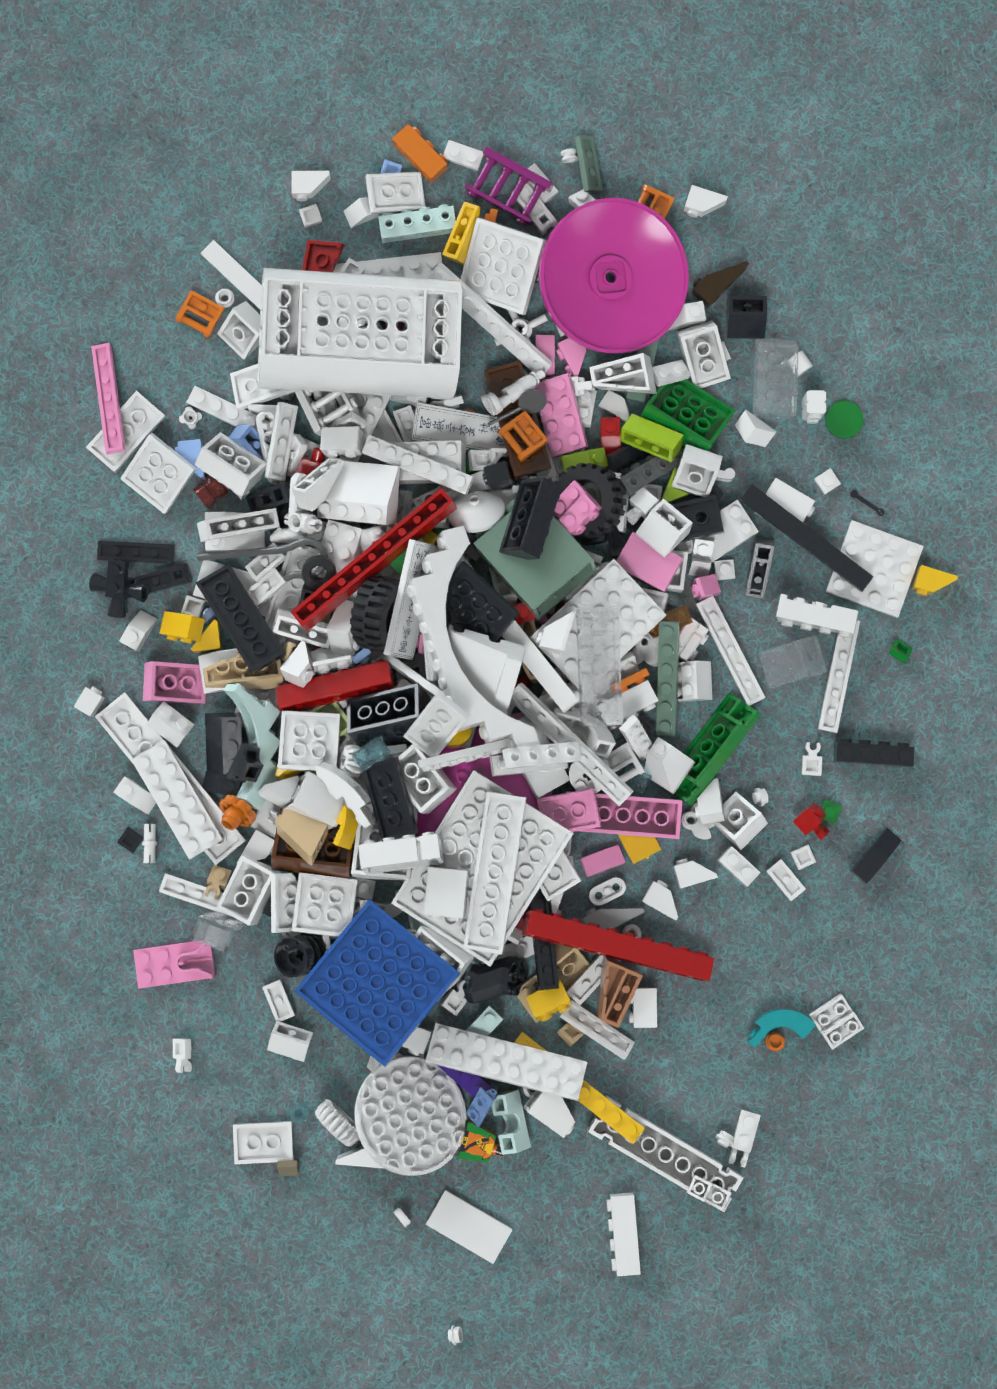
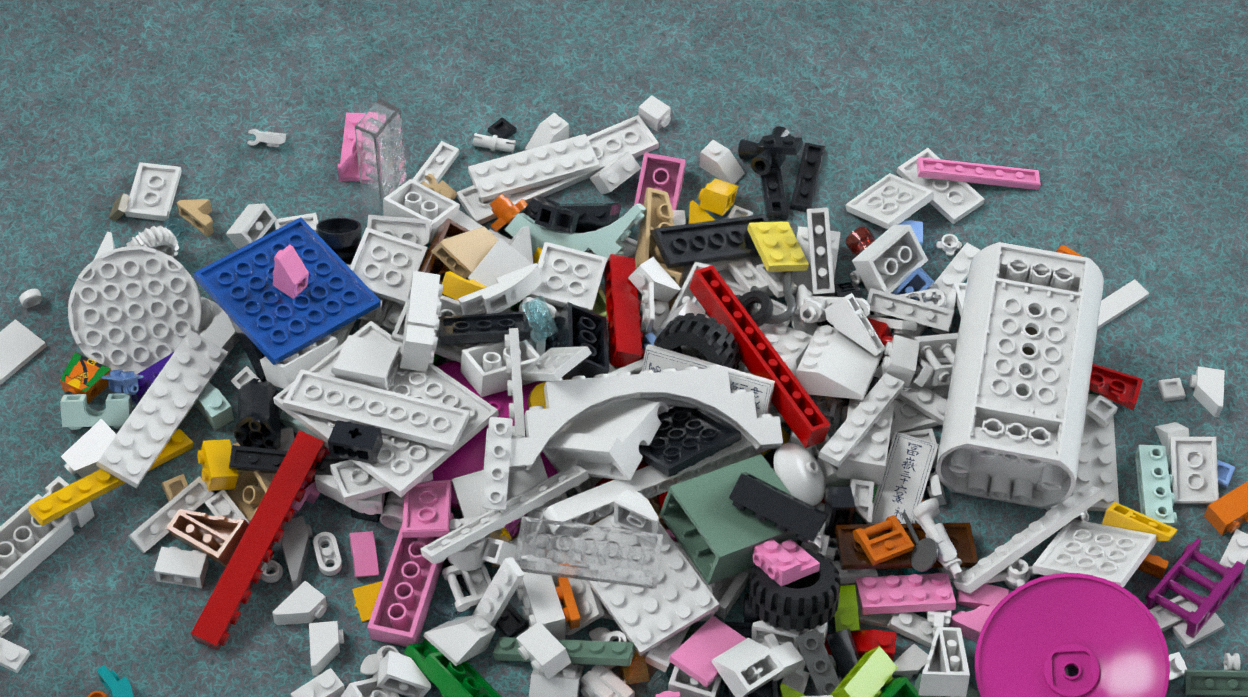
camera: 100 degrees right, 30 degrees down
(236, 564) = (777, 246): none -> light yellow plate
(281, 1098) = (197, 213): none -> tan slope
(372, 980) = (289, 272): none -> bright pink slope
(538, 891) = (355, 442): none -> black brick
(679, 692) = (543, 650): none -> white brick

